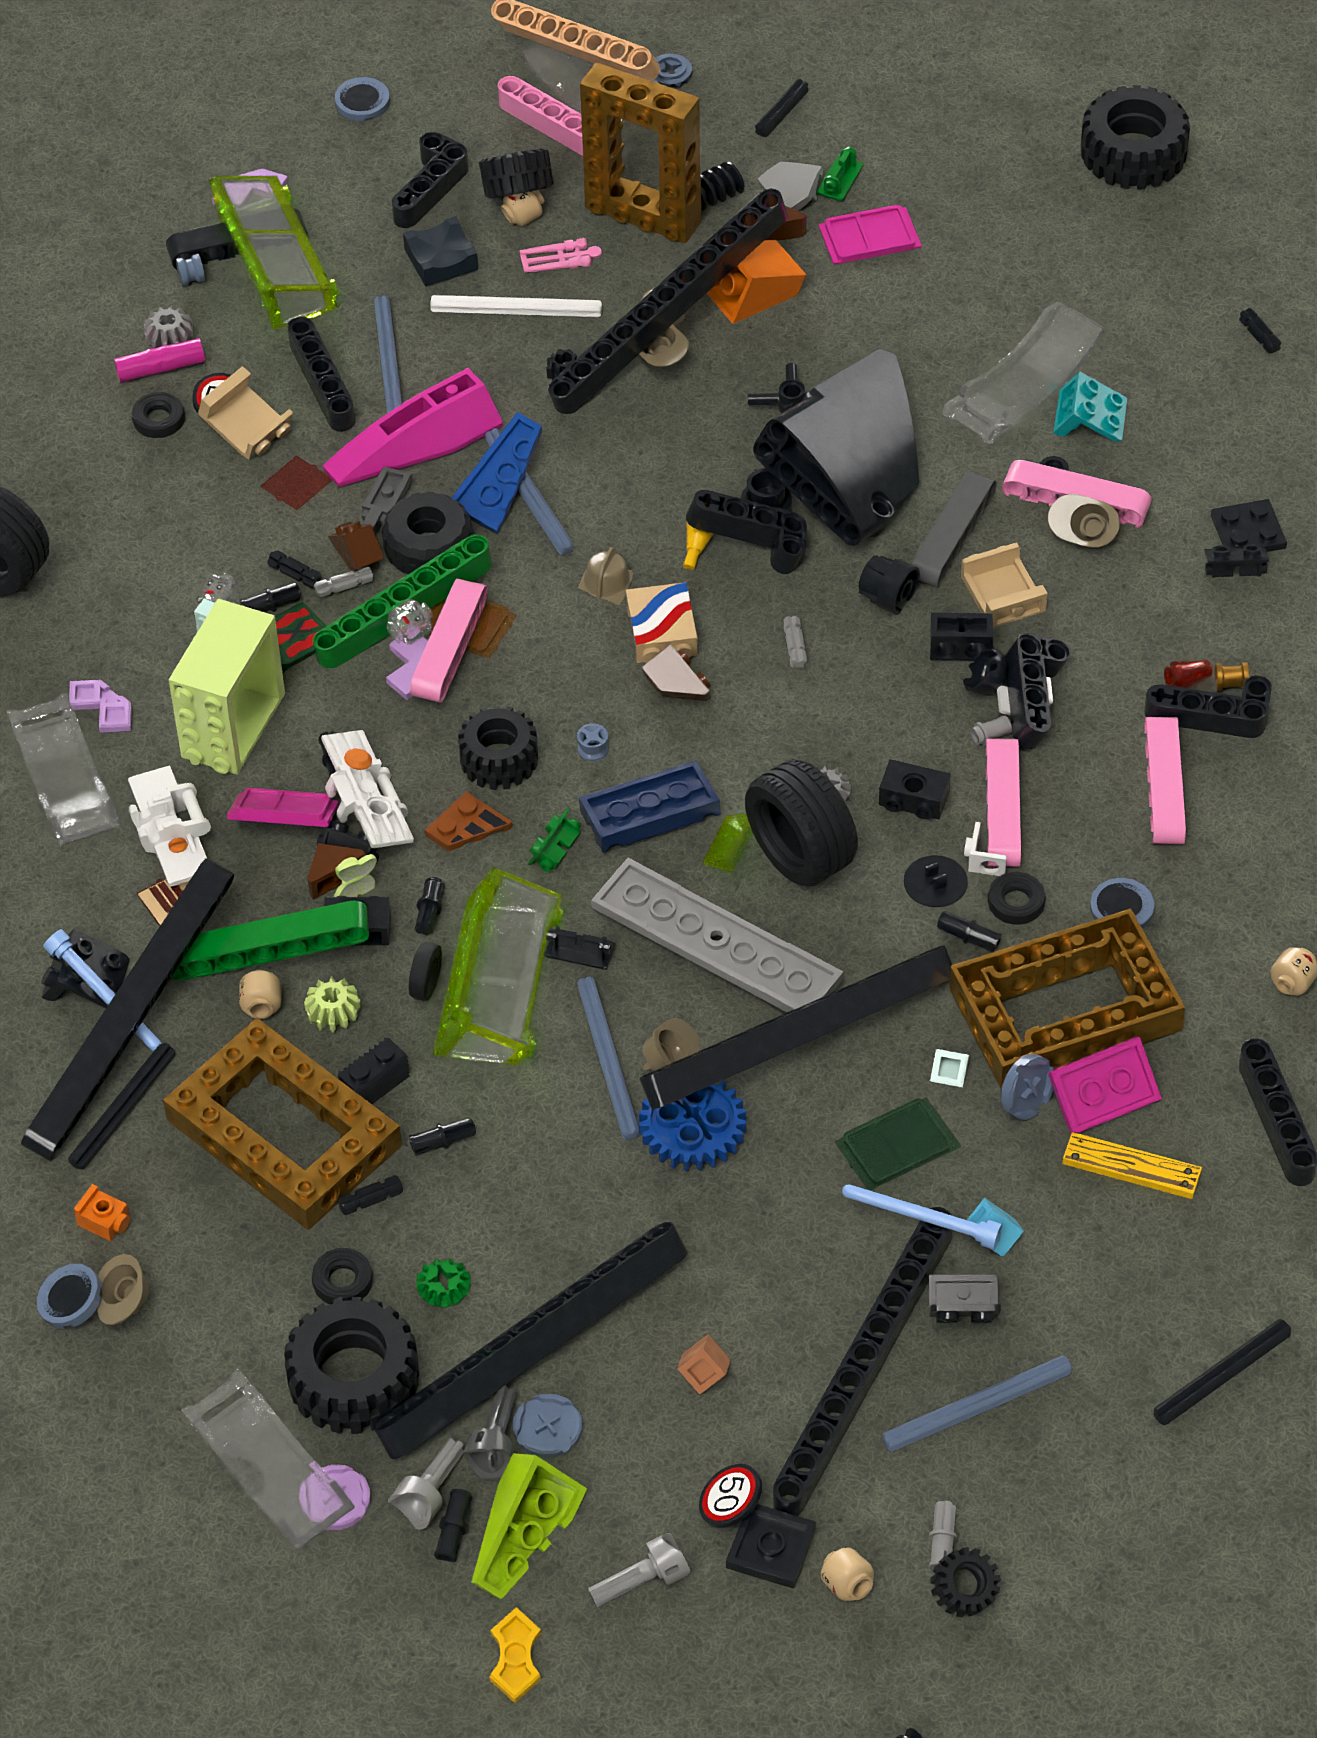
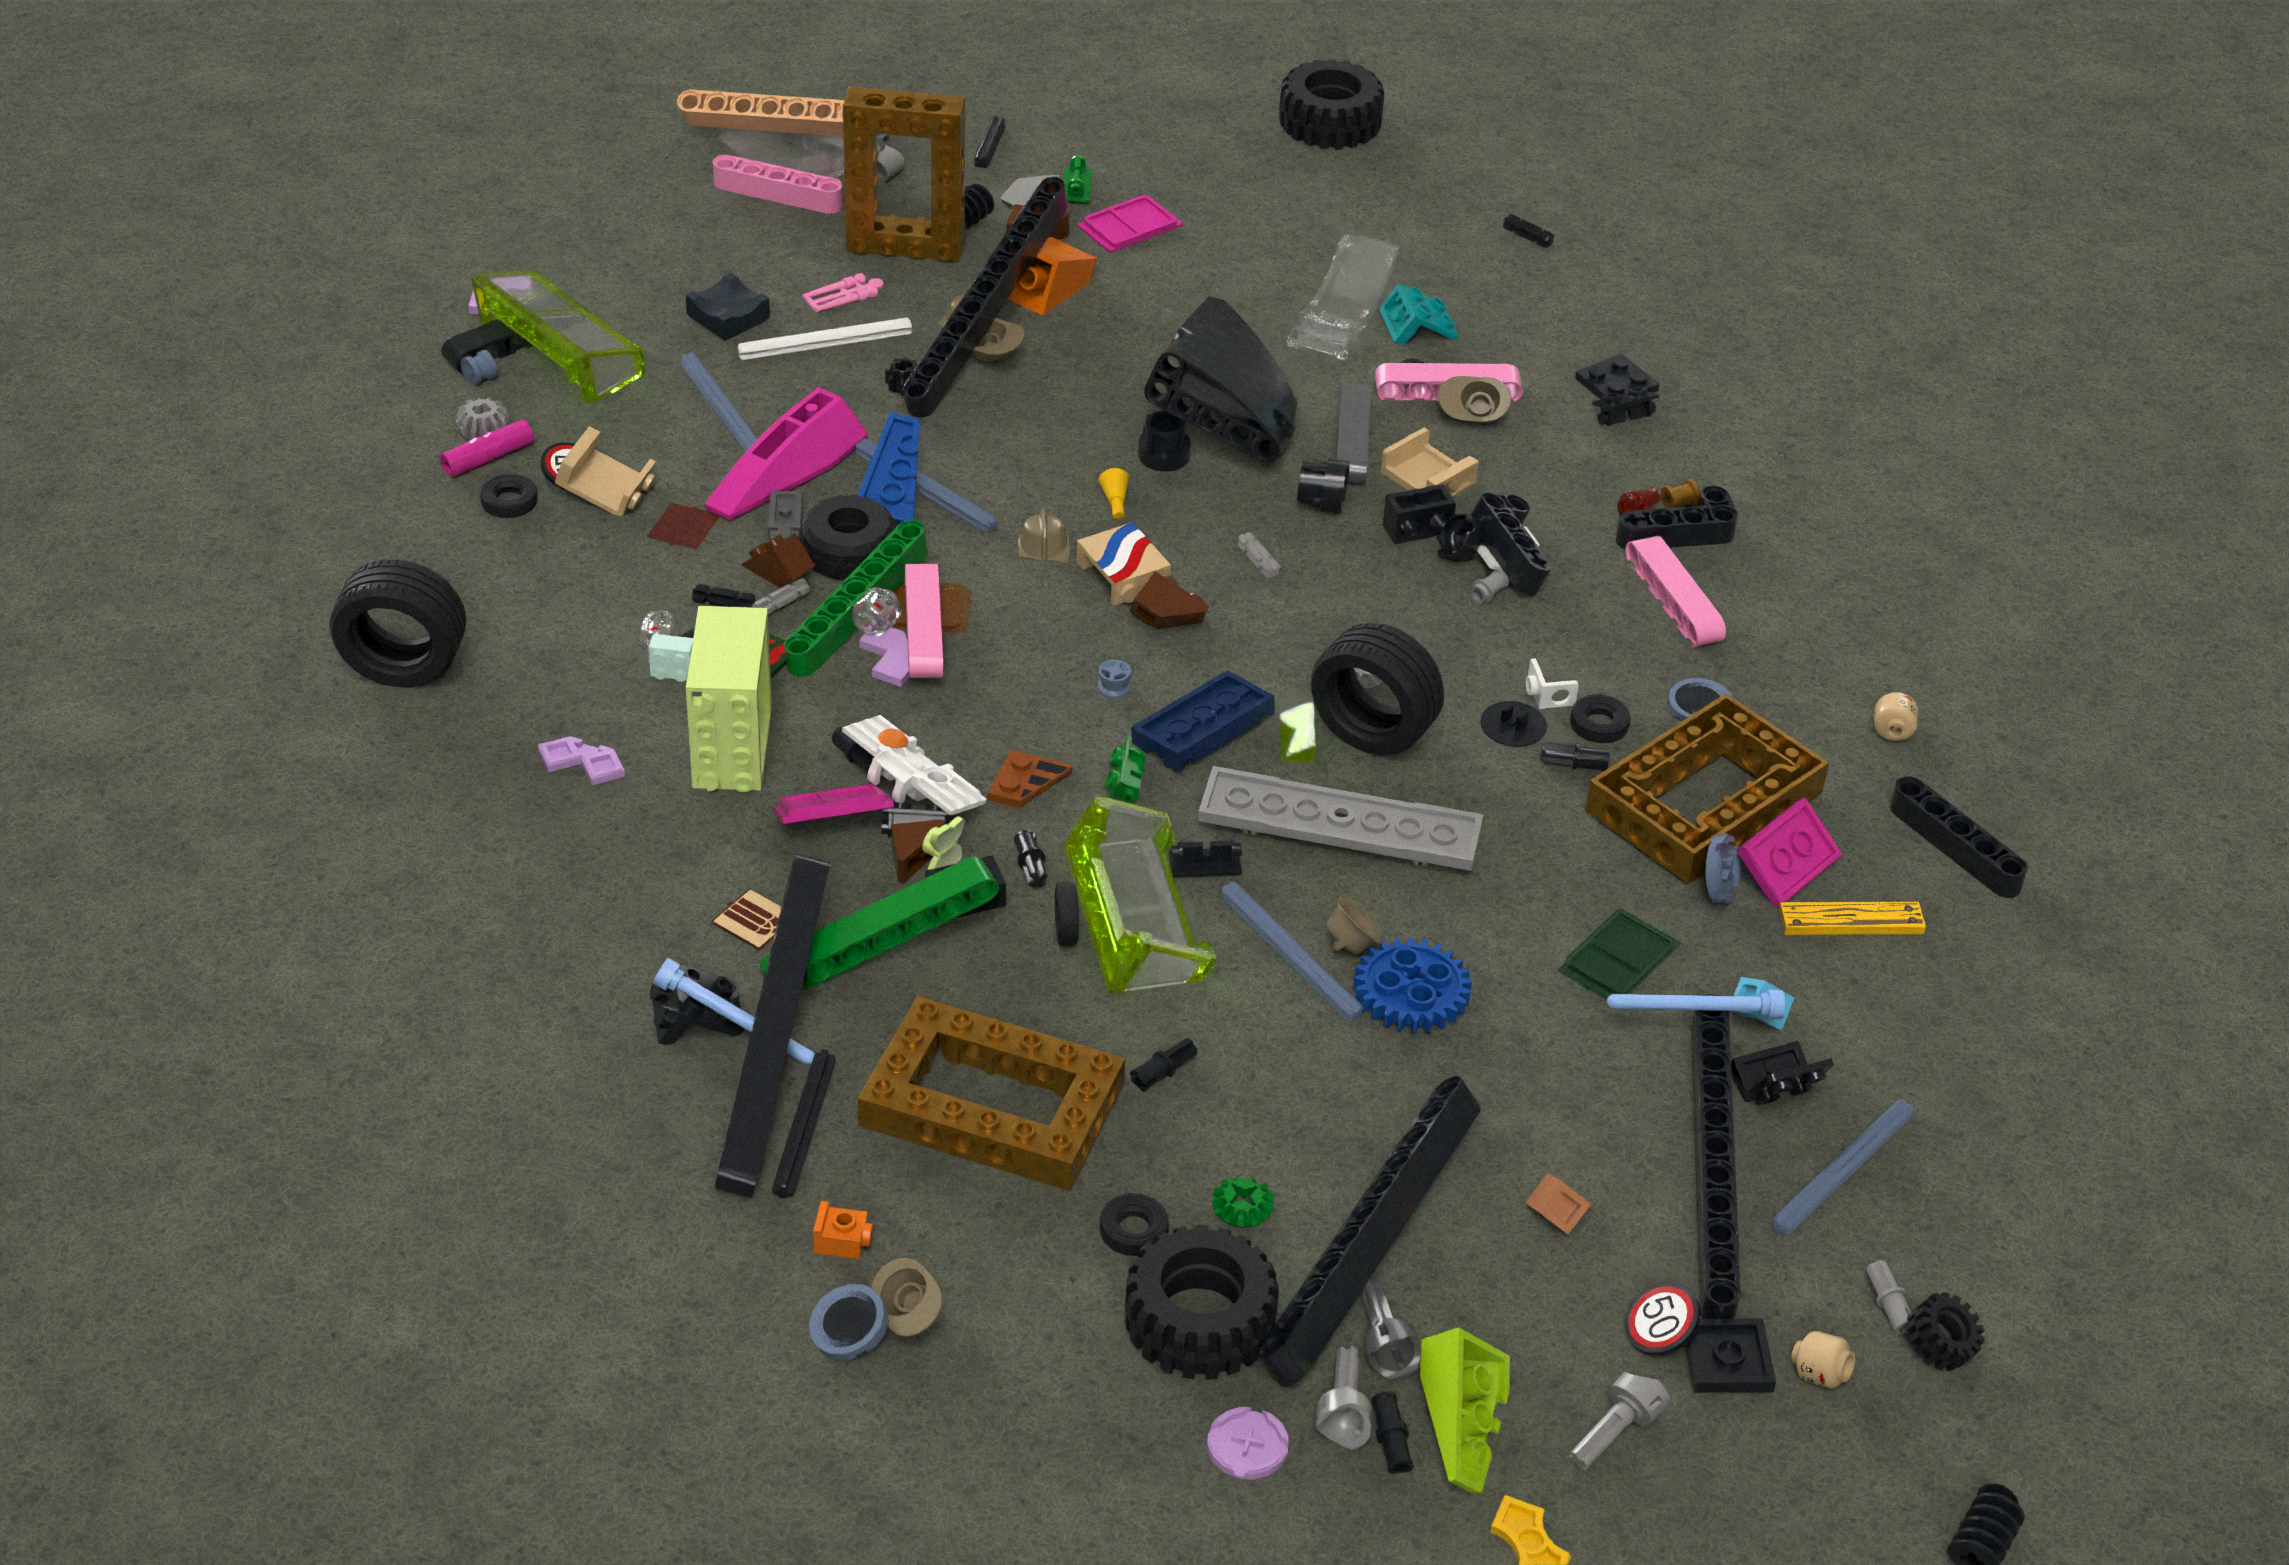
camera: 25 degrees left, 10 degrees down
(63, 772) = (577, 826): clear windscreen -> none
(161, 831) = (728, 860): white piece -> none
(260, 994) = (901, 978): tan head -> none
(269, 1463) = (1167, 1427): clear windscreen -> none
(321, 374) = (662, 427): black beam -> none
(332, 1004) = (982, 970): yellowish green gear -> none
(362, 98) = (577, 203): tile -> none
(370, 1195) = (1119, 1139): black axle -> none
(377, 1071) = (1068, 1013): black brick -> none
(444, 167) = (691, 243): black beam -> none
(502, 765) = (1025, 701): black tyre -> none
(516, 173) = (773, 225): black tyre -> none
(523, 207) = (787, 256): tan head -> none
(547, 1426) = (1431, 1305): sand blue tile -> none
(752, 523) = (1168, 462): black beam -> none
(789, 394) = (1136, 361): black bar -> none
(796, 1027) = (1470, 872): black beam -> none
(914, 789) = (1455, 647): black brick -> none
(949, 1068) = (1628, 876): light aqua slope -> none
(1003, 800) = (1539, 637): bright pink beam -> none
(1222, 1372) = (2052, 1075): black axle -> none

